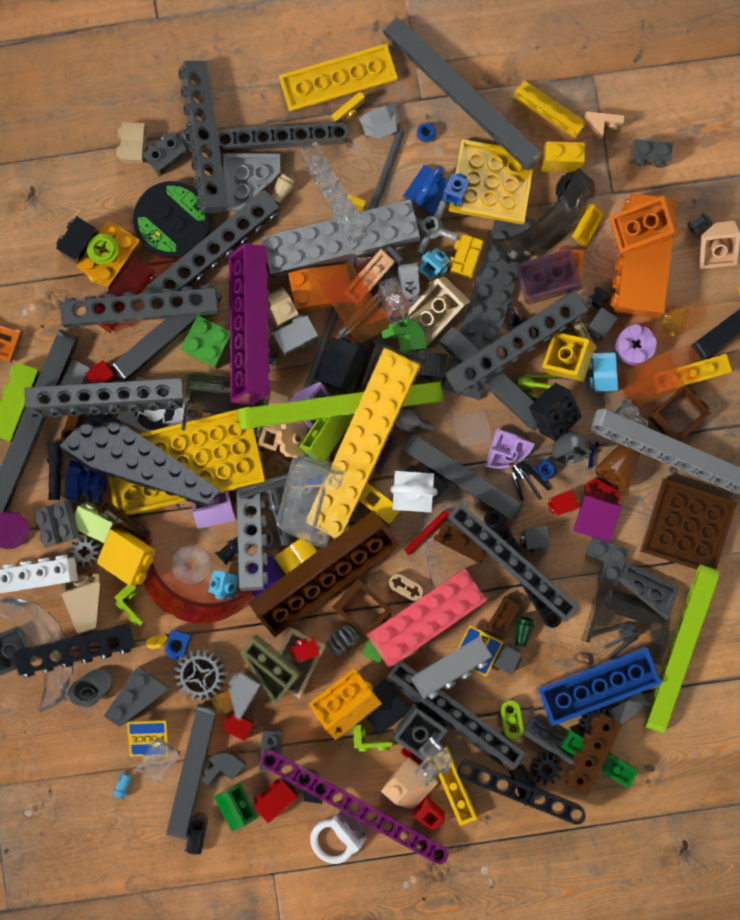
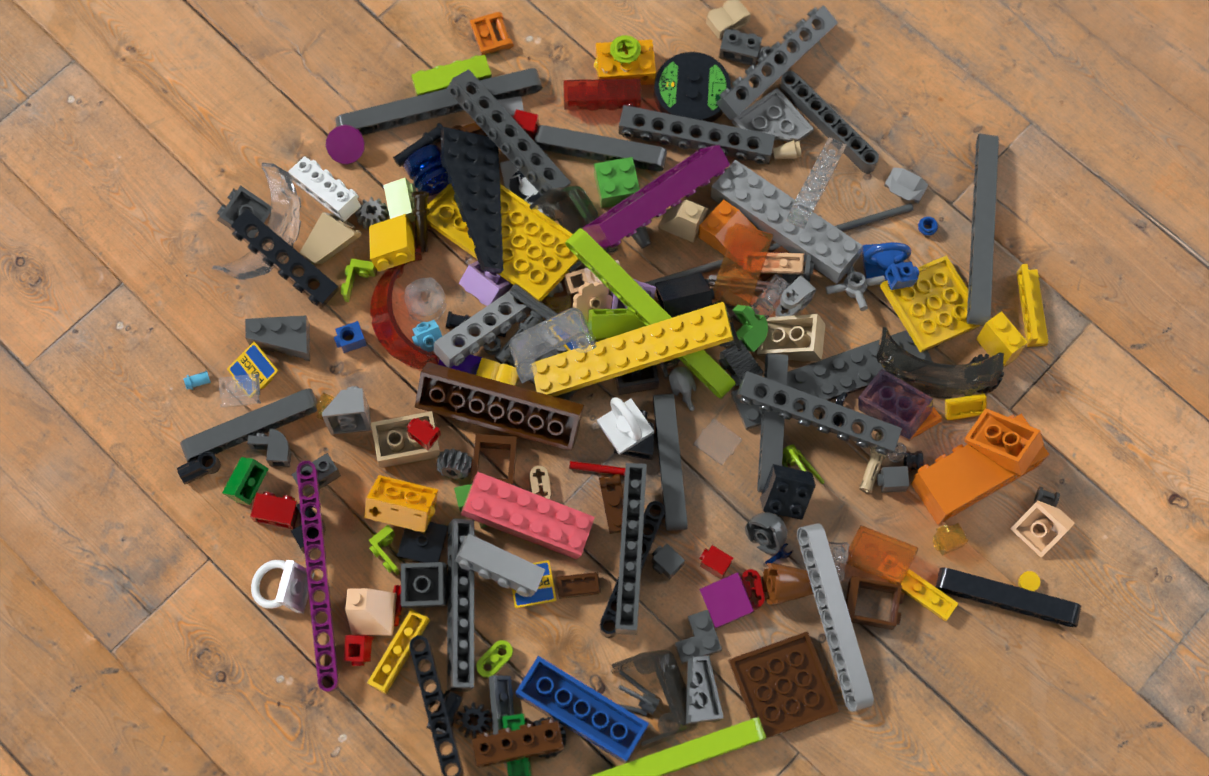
camera: 55 degrees right, 15 degrees down
(56, 523) = (377, 174): dark grey plate -> none
(70, 306) = (645, 156): dark grey brick -> none
(75, 240) = (615, 25): black brick -> none
(90, 688) = (259, 295): dark grey piece -> none
(157, 641) = (338, 319): yellow piece -> none
(203, 683) = (344, 358): light grey gear -> none
(238, 728) = (317, 435): red brick -> none
(270, 667) = (385, 415): olive wedge -> none
(296, 335) = (679, 241): light grey brick -> none
(338, 78) = (911, 129): yellow plate -> none
(348, 108) = (895, 153): yellow plate -> none
(359, 203) = (824, 211): yellow tile -> none
(379, 503) = (592, 408): yellow brick -> none
(434, 264) = (827, 307): medium azure brick -> none
(436, 761) = (409, 613): clear brick -> none
(466, 256) = (855, 329): yellow brick -> none
(507, 448) = (724, 482): lavender brick -> none
(508, 658) = (545, 615): dark grey brick -> none
(523, 471) = (713, 507): black plant -> none
(523, 630) = (579, 611): dark green cone -> none
(550, 469) = (727, 530): blue plate -> none
(568, 356) = (843, 470): yellow brick -> none
(597, 121) = (1058, 351): light nougat slope -> none
(603, 373) = (854, 512): medium azure brick -> none
(629, 707) = (584, 755): light grey slope -> none
(645, 348) = (907, 511): lavender brick -> none
(651, 153) = (1069, 412): dark grey brick -> none

